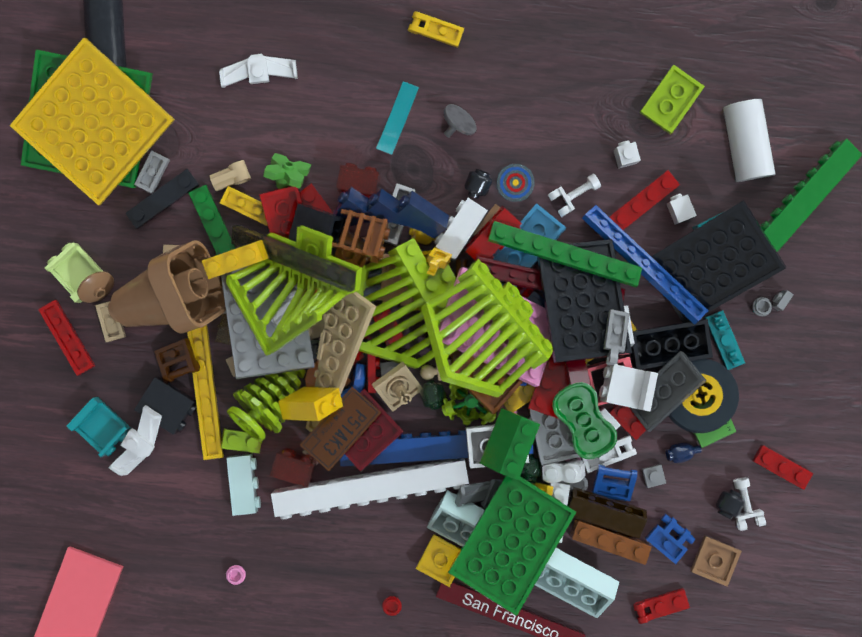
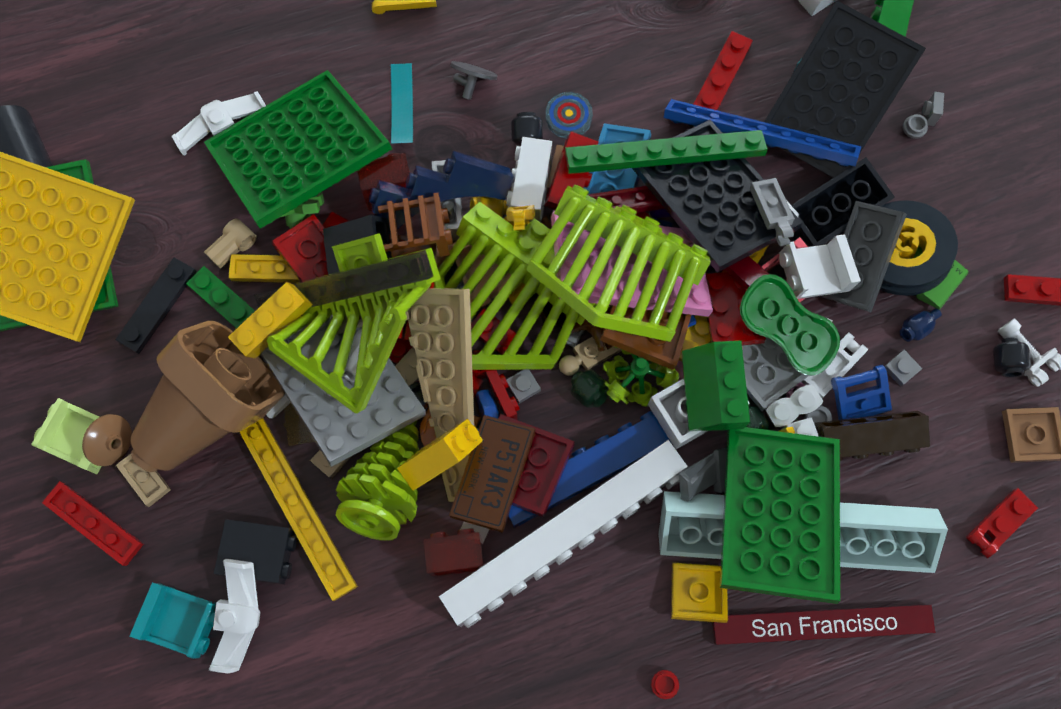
camera: 25 degrees left, 15 degrees down
(152, 172) = (132, 279): light grey plate -> none
(175, 354) = (240, 482): reddish brown plate -> none
(239, 441) = (371, 554): lime plate -> none
(243, 484) = (398, 609): light aqua brick -> none
(304, 128) = (296, 147): none -> green plate
(397, 386) = (540, 395): tan plate -> none
(592, 183) = (656, 77): white bar -> none
(611, 541) = (897, 467): dark orange brick -> none
(626, 154) = (678, 32): white brick -> none
(628, 420) = (844, 317): red plate -> none
(667, 544) = (962, 440): blue plate -> none
(680, 208) = (768, 62): white brick -> none
(725, 340) = (897, 179): teal plate -> none

